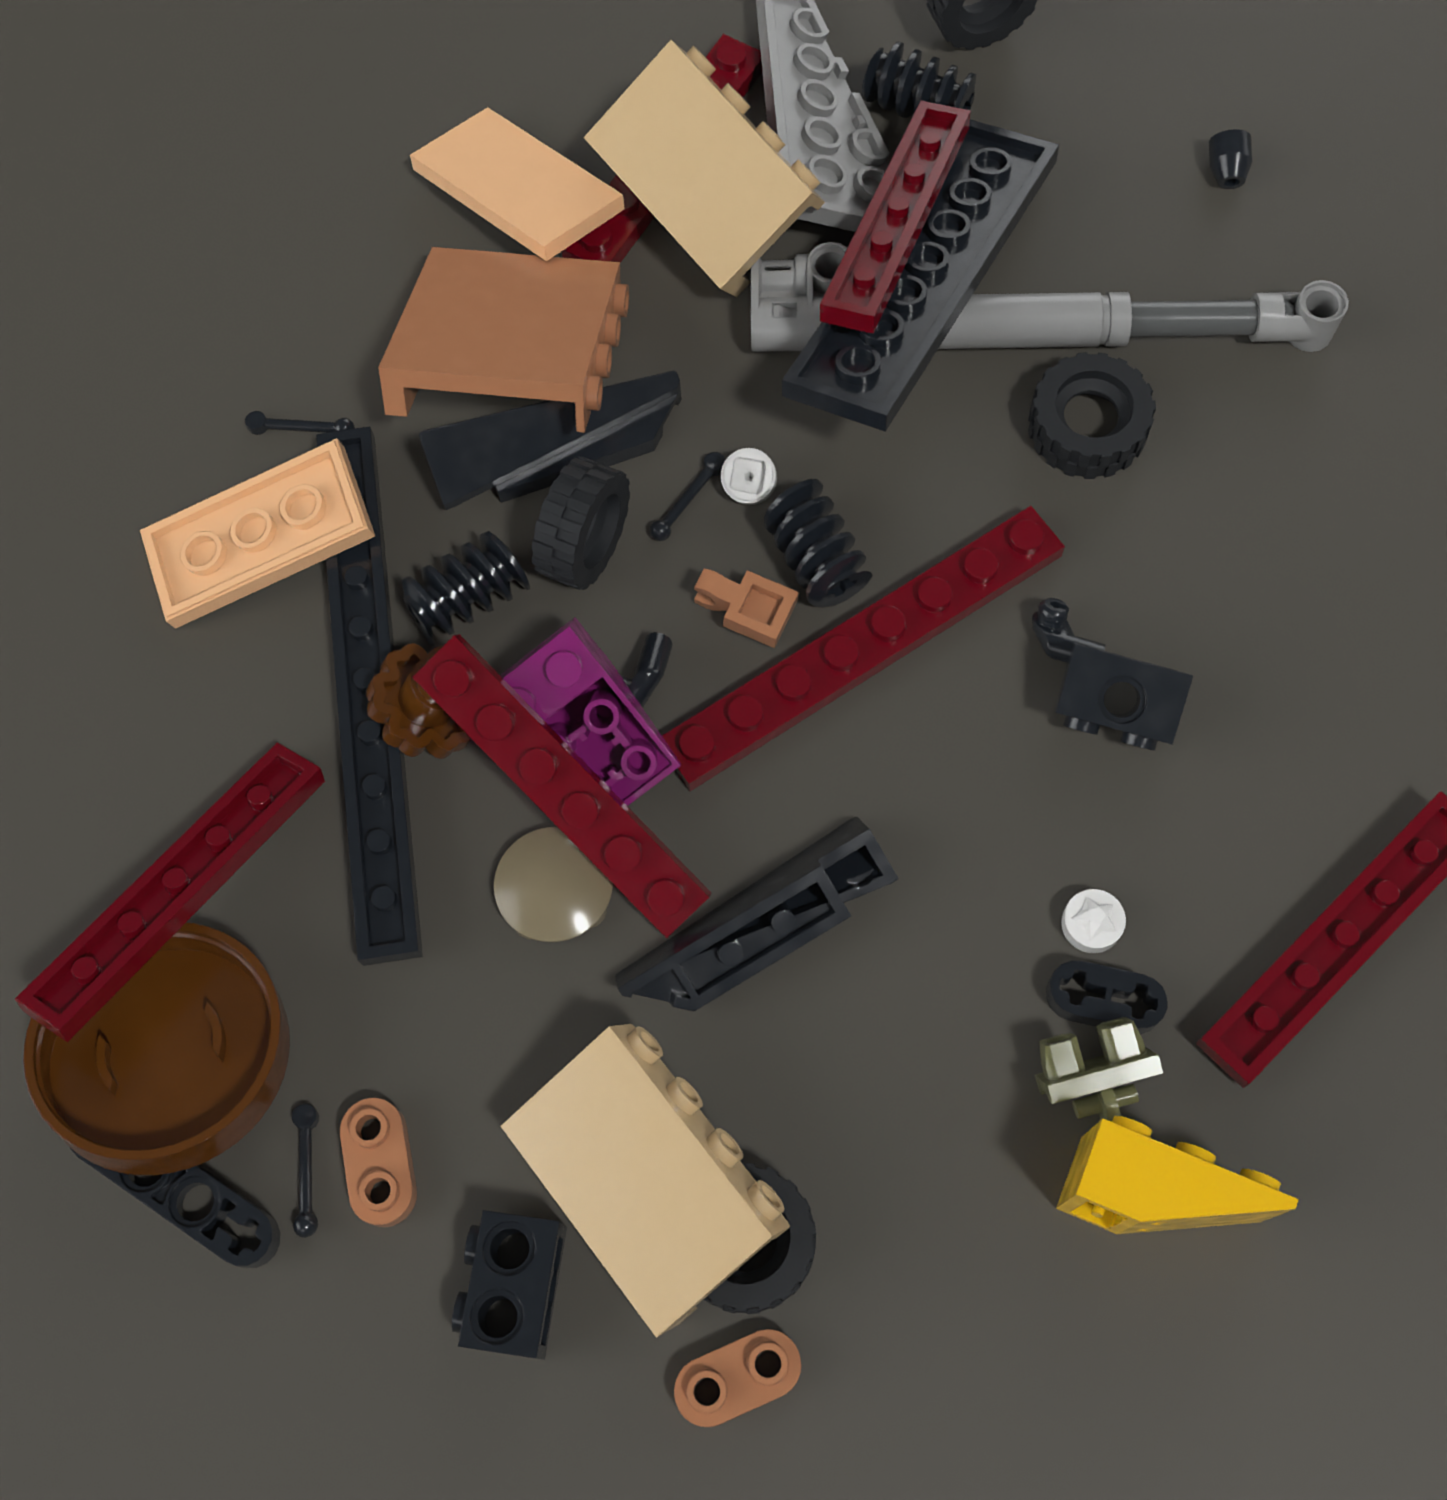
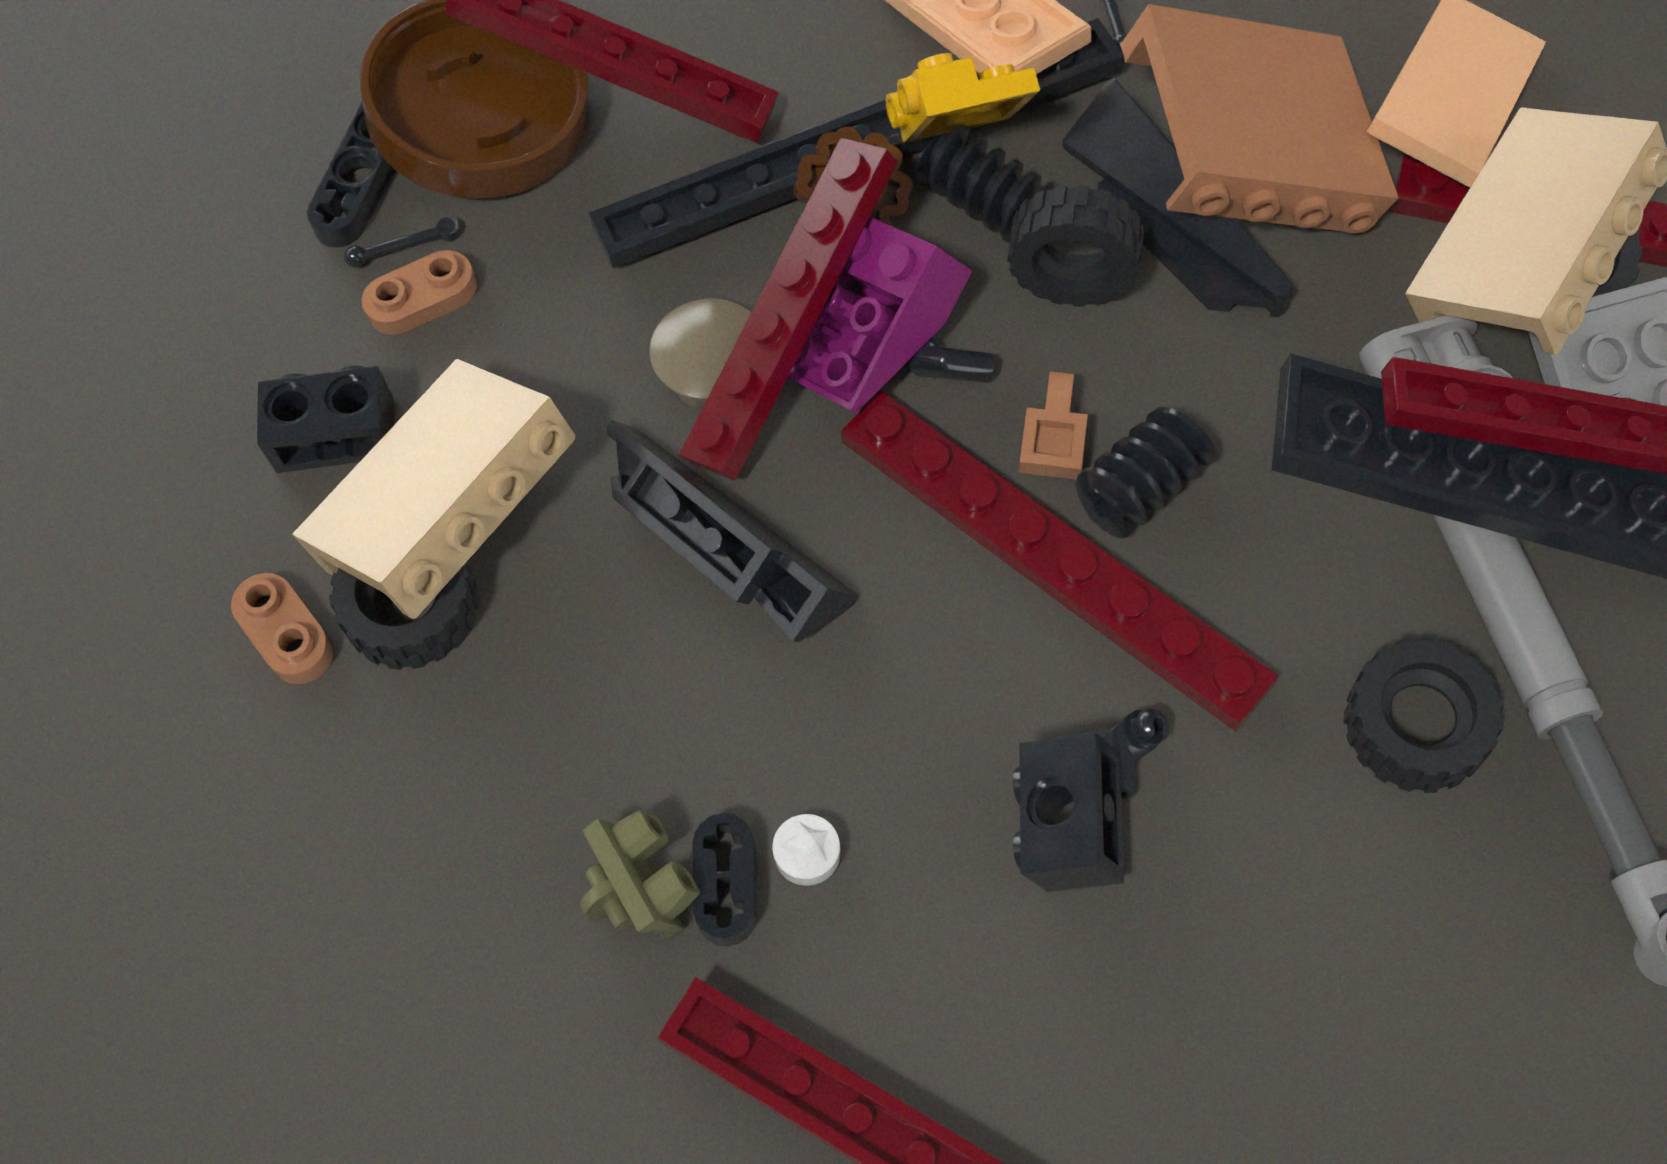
camera: 75 degrees right, 5 degrees down
(391, 570) = (949, 94): none -> yellow plate
(661, 529) = (1210, 364): black hinge -> none
(748, 476) = (1204, 393): white tile -> none
(1143, 1185) = (513, 929): yellow slope -> none

